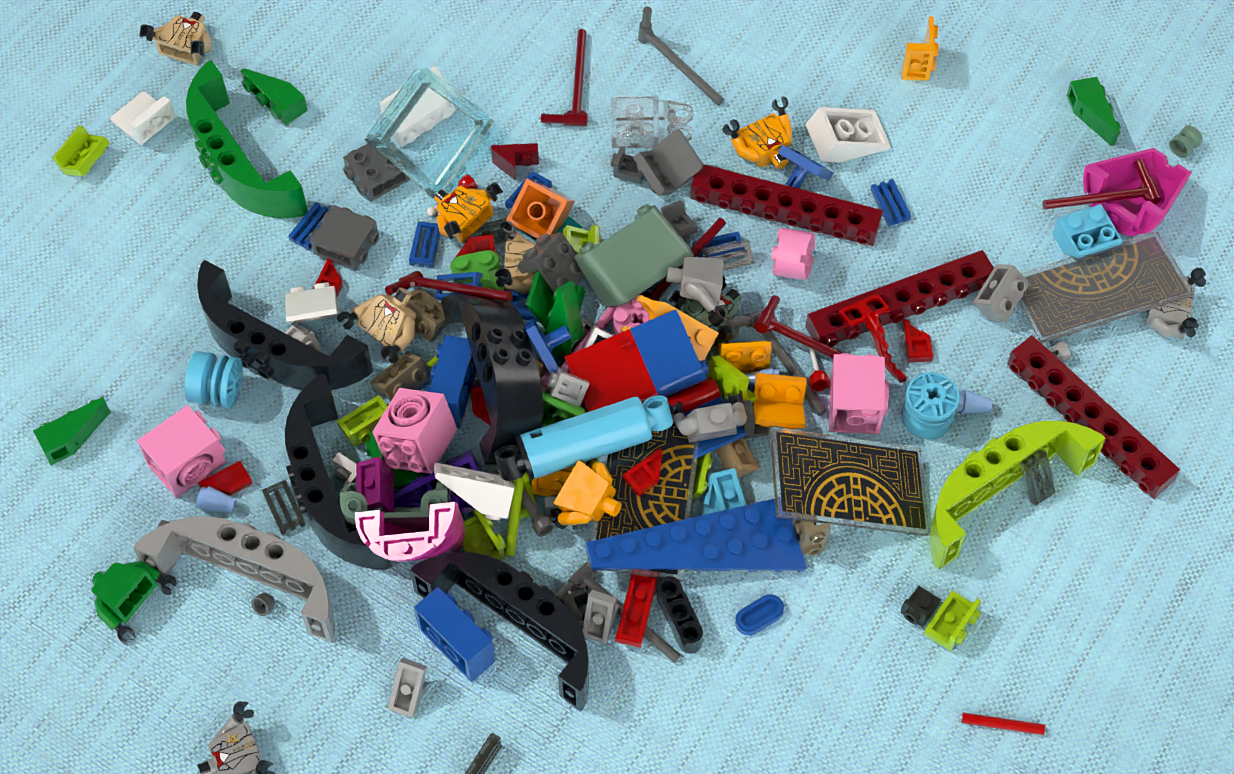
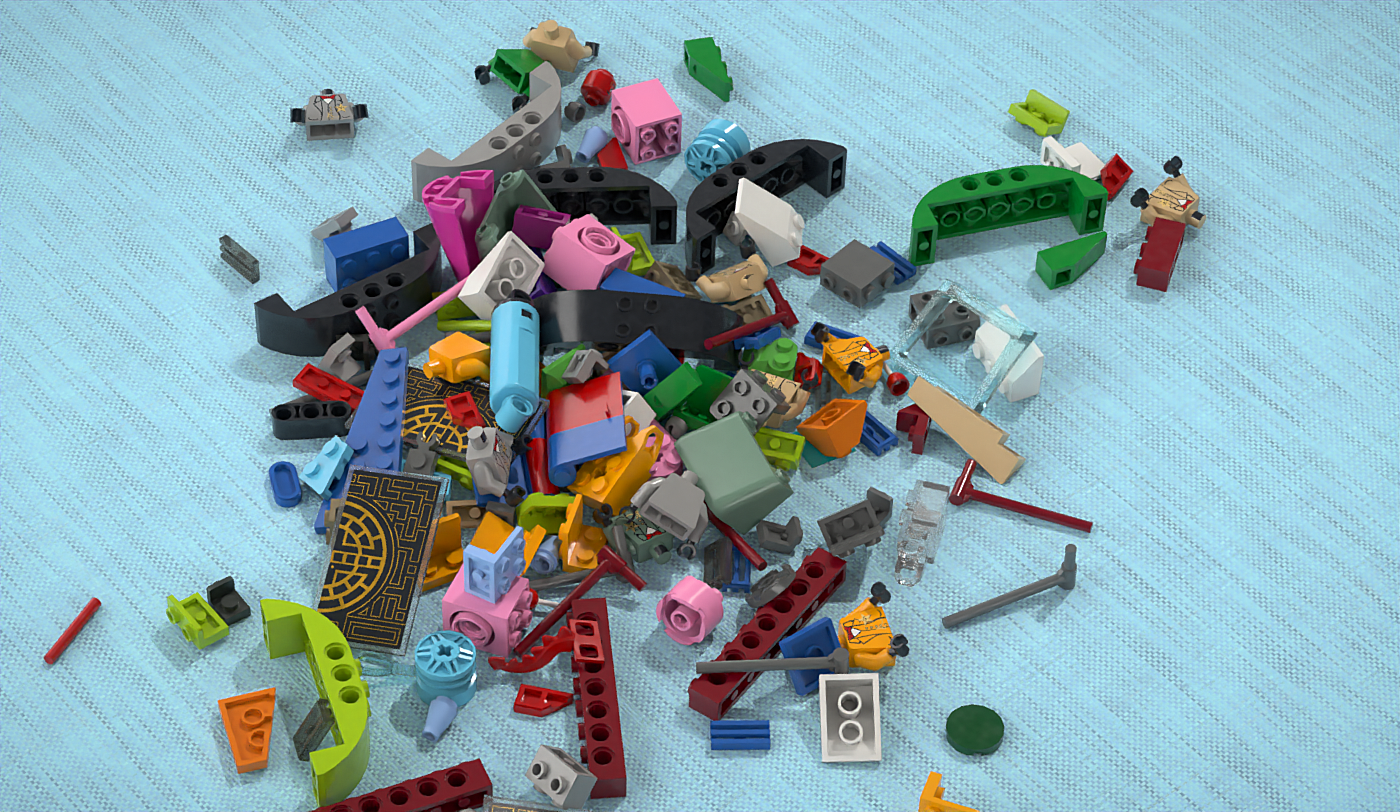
camera: 105 degrees right, 15 degrees down
(76, 573) = (558, 45): none -> tan torso
(127, 517) = (598, 87): none -> red head
(152, 86) = (1115, 175): none -> red tile
(248, 36) = (1159, 254): none -> dark red brick
(258, 516) = (563, 156): none -> dark grey bracket
(515, 116) = (969, 429): none -> tan wedge
(567, 577) = (385, 339): none -> bright pink bar
(709, 494) = (423, 459): none -> dark grey plate
(743, 573) = (327, 466): none -> medium azure wing
(744, 208) = (770, 586): none -> dark grey tile
(816, 139) = (836, 662): none -> dark grey bar
(819, 62) = (974, 730): none -> dark green tile
(850, 356) = (491, 574): none -> light blue bracket
(932, 453) = (395, 667): none -> clear light blue piece
(1045, 539) = (249, 727): none -> orange wing

